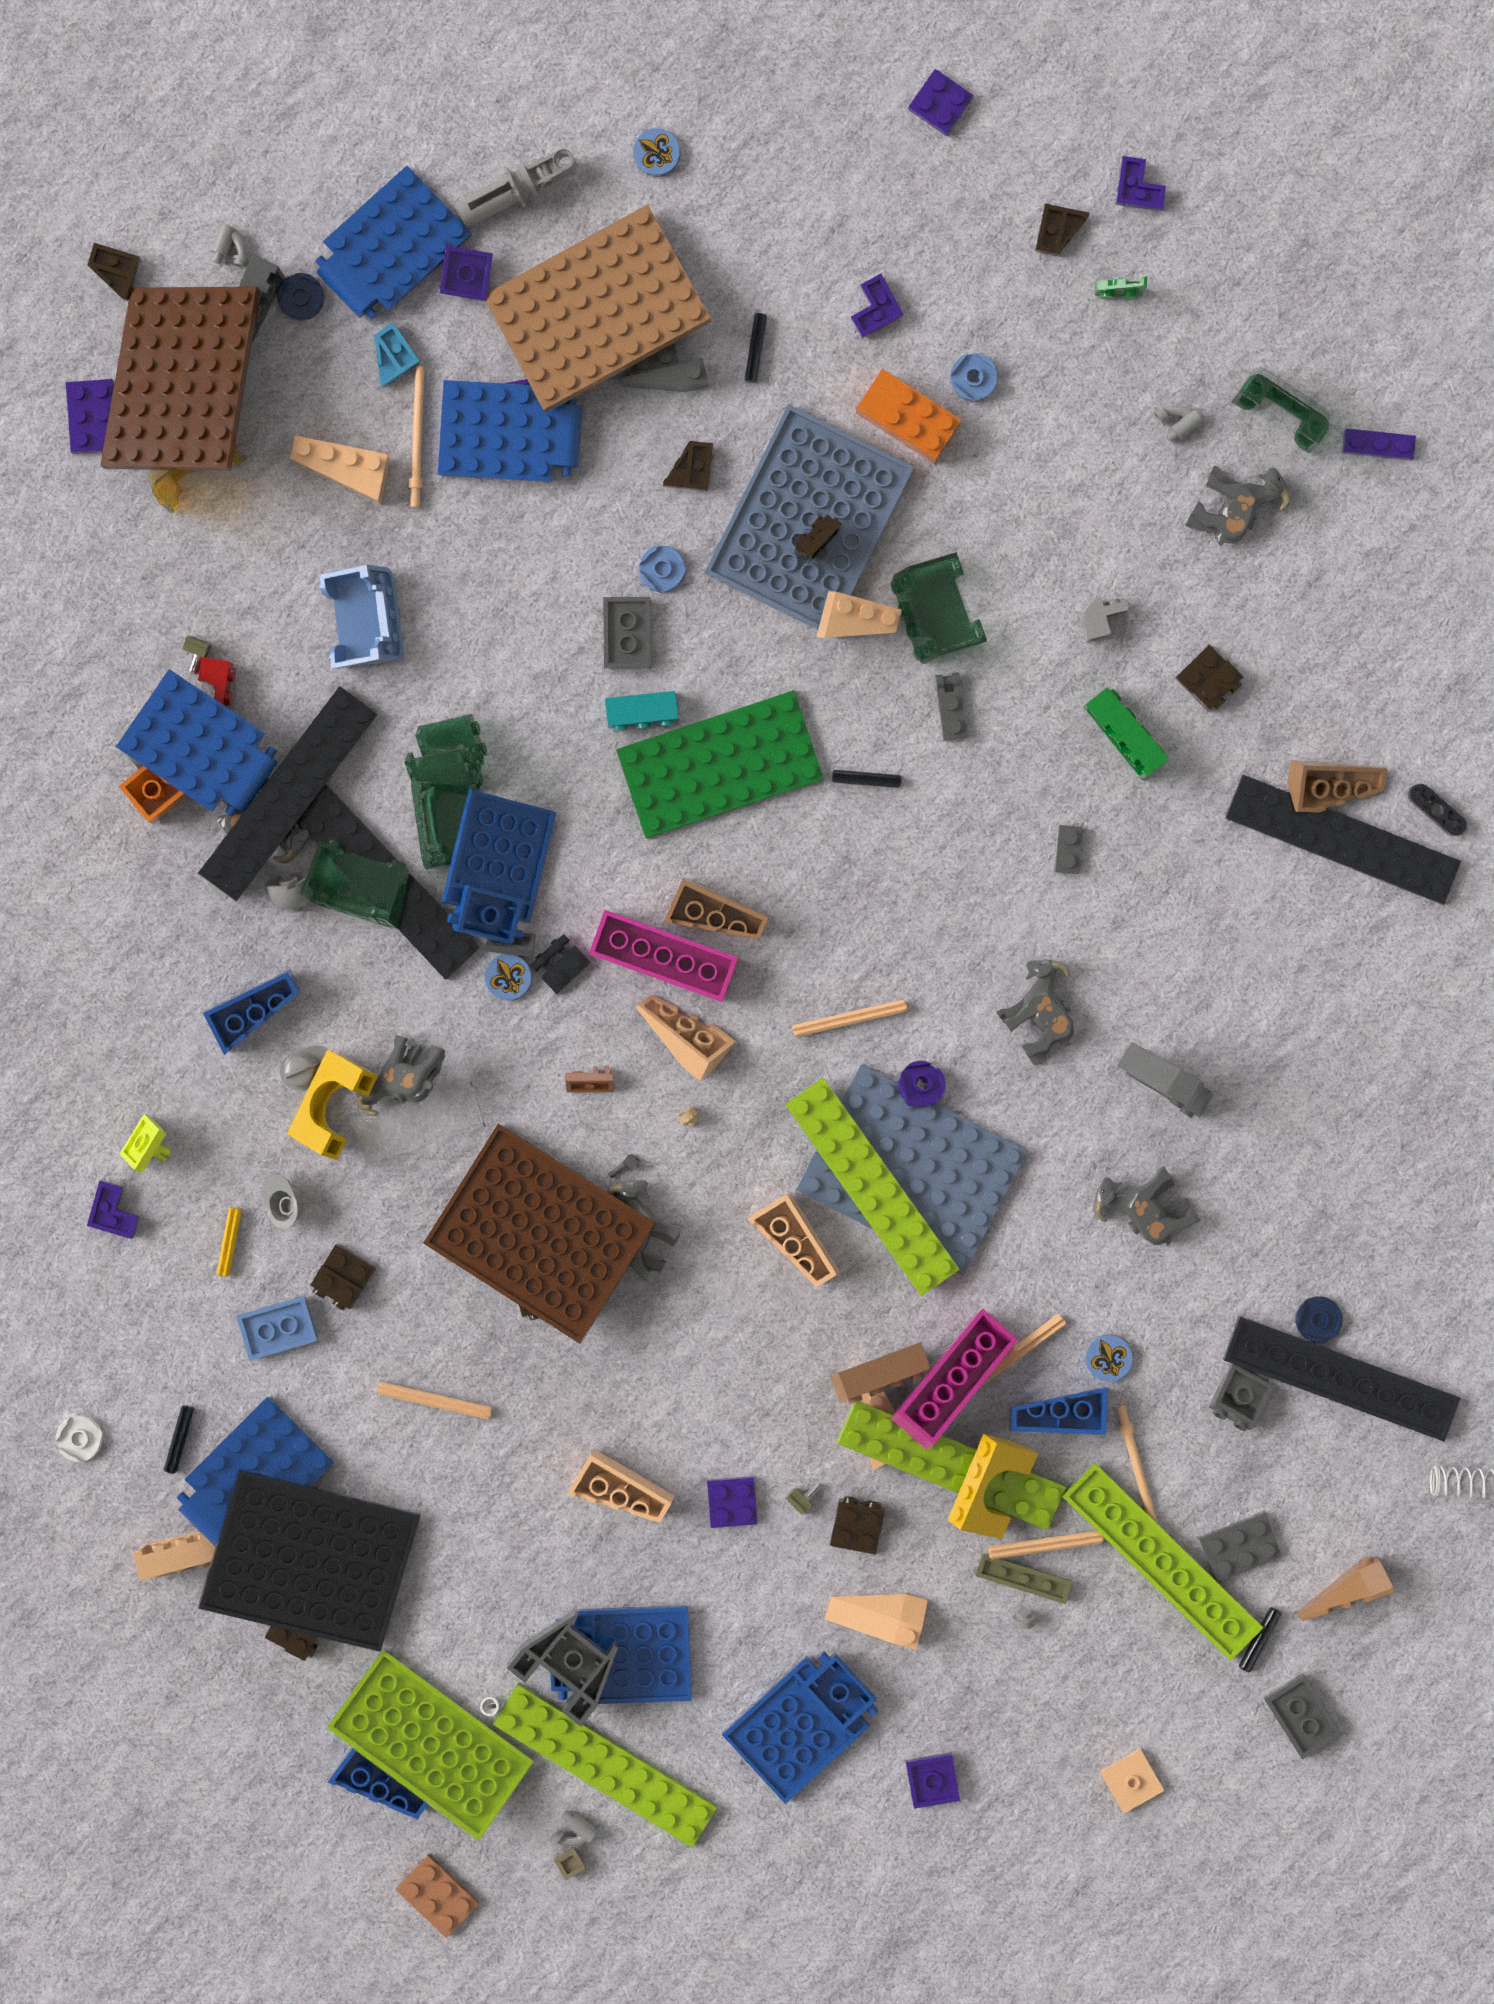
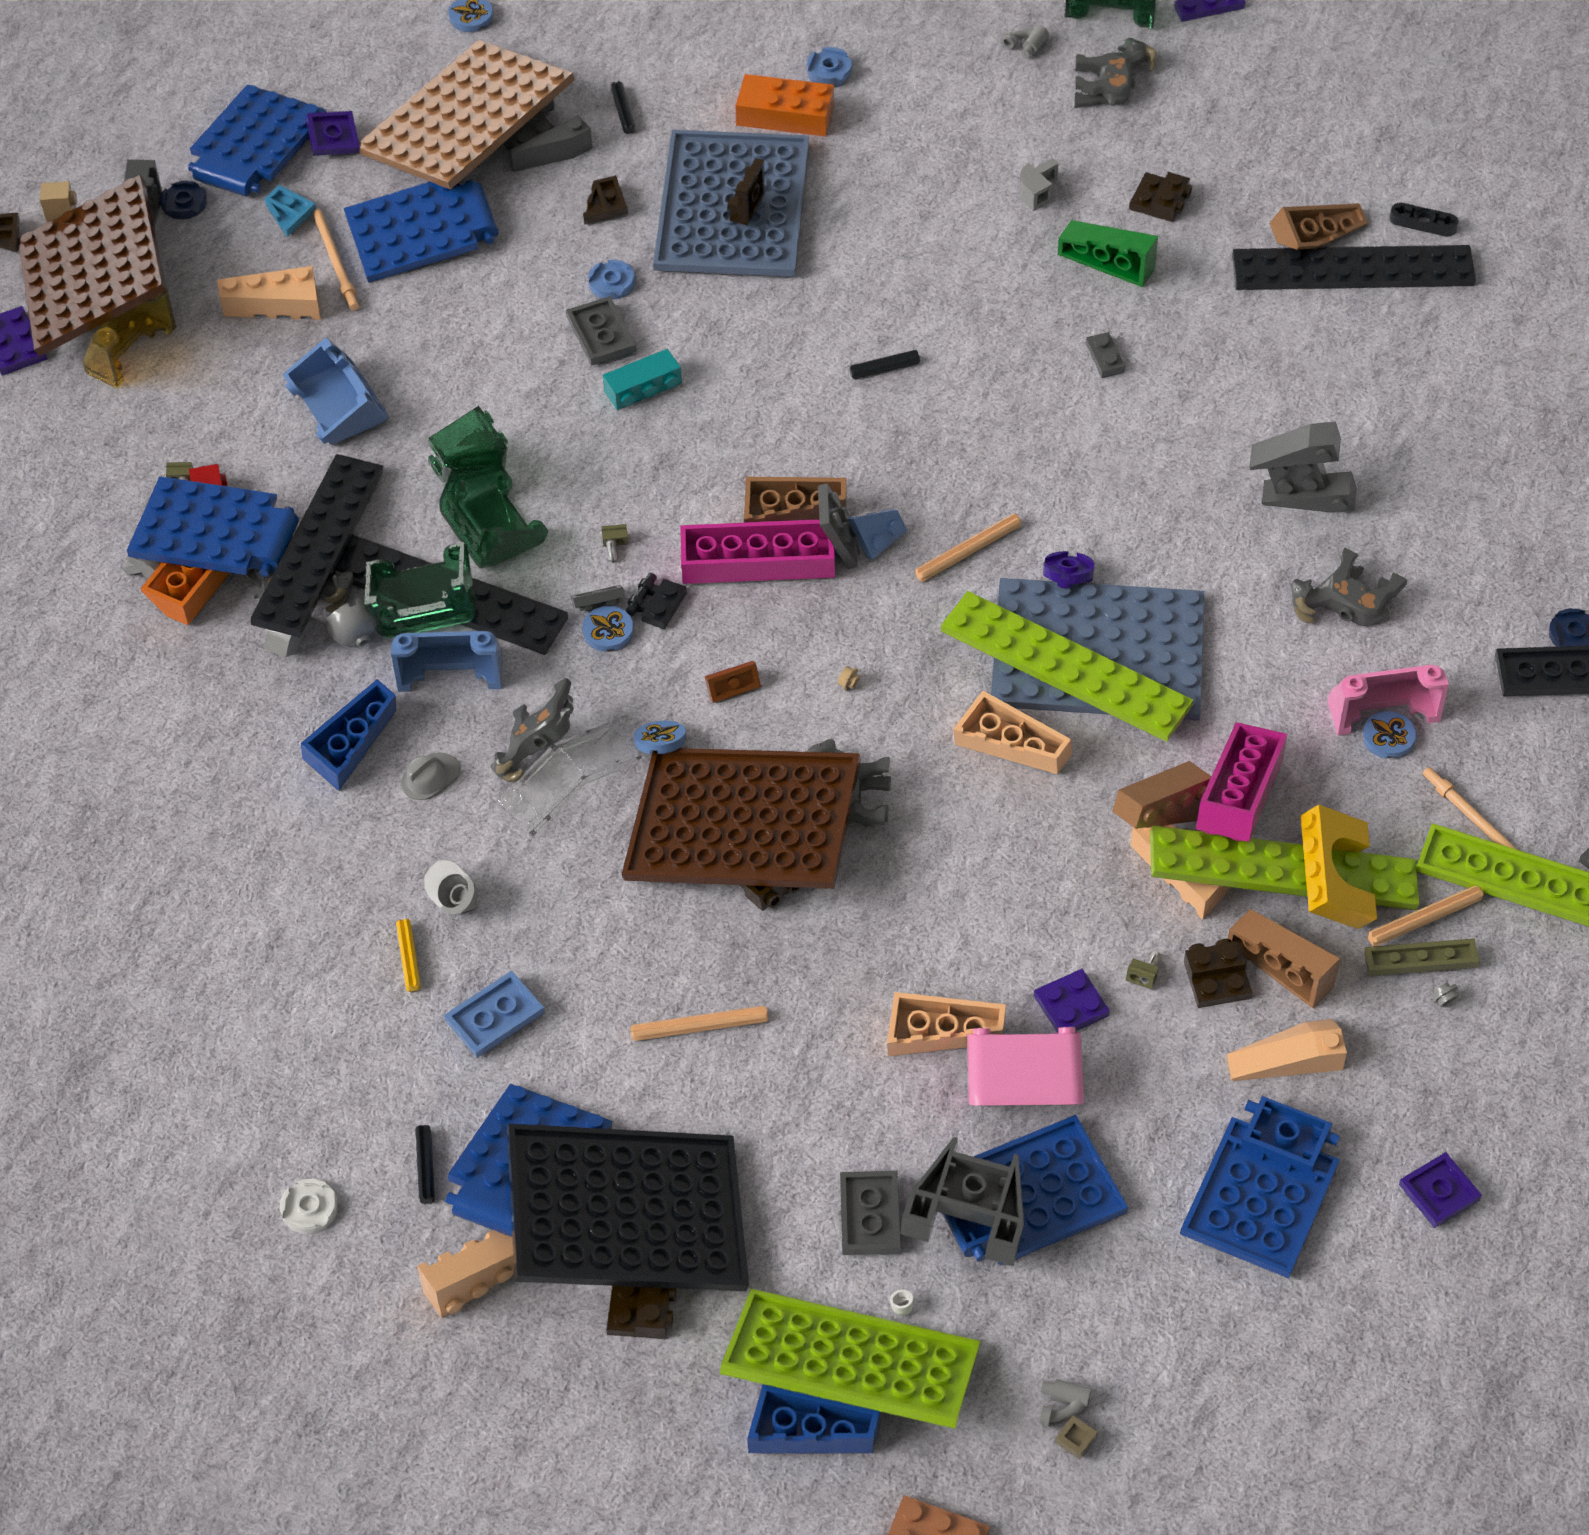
camera: 20 degrees left, 35 degrees down
(105, 1212) = (264, 976): dark purple plate -> none
(145, 1144) = (281, 888): neon yellow tile -> none
(176, 272) = (57, 199): none -> tan brick
(223, 243) = (96, 180): light grey plant -> none
(310, 1120) = (463, 755): yellow arch -> none
(342, 1277) = (547, 944): dark brown plate -> none
(386, 963) = (446, 651): none -> medium blue windscreen
(496, 866) = (555, 528): blue plate -> none
(497, 1622) = (870, 1213): none -> dark grey plate
(506, 1116) = (660, 736): none -> medium blue tile
(523, 182) = (354, 63): light grey piece -> none
(549, 879) = (613, 536): none -> olive piece
(605, 1765) = (1065, 1319): lime plate -> none
(630, 1161) = (807, 736): dark grey hand -> none
(659, 1569) = (1025, 1068): none -> bright pink windscreen
(692, 1043) = (830, 618): light nougat wedge -> none
(719, 764) = (737, 400): green plate -> none
(739, 969) = (836, 526): none -> dark grey plate
(778, 975) = (877, 530): none -> medium blue wing
(856, 616) = (813, 242): light nougat wedge -> none
(882, 307) = (721, 48): dark purple plate -> none
(914, 1536) = (1286, 957): none -> medium nougat wedge
(935, 609) = (875, 226): clear green windscreen -> none
(951, 707) = (935, 289): dark grey plate -> none
(1028, 1344) = (1295, 759): light nougat axle -> none
(1043, 1008) = (1154, 474): dark grey animal -> none
(1070, 1413) = (1377, 789): blue wedge -> none
(1103, 1314) = (1420, 687): none -> bright pink windscreen
(1241, 1398) = (1542, 717): dark grey plate -> none

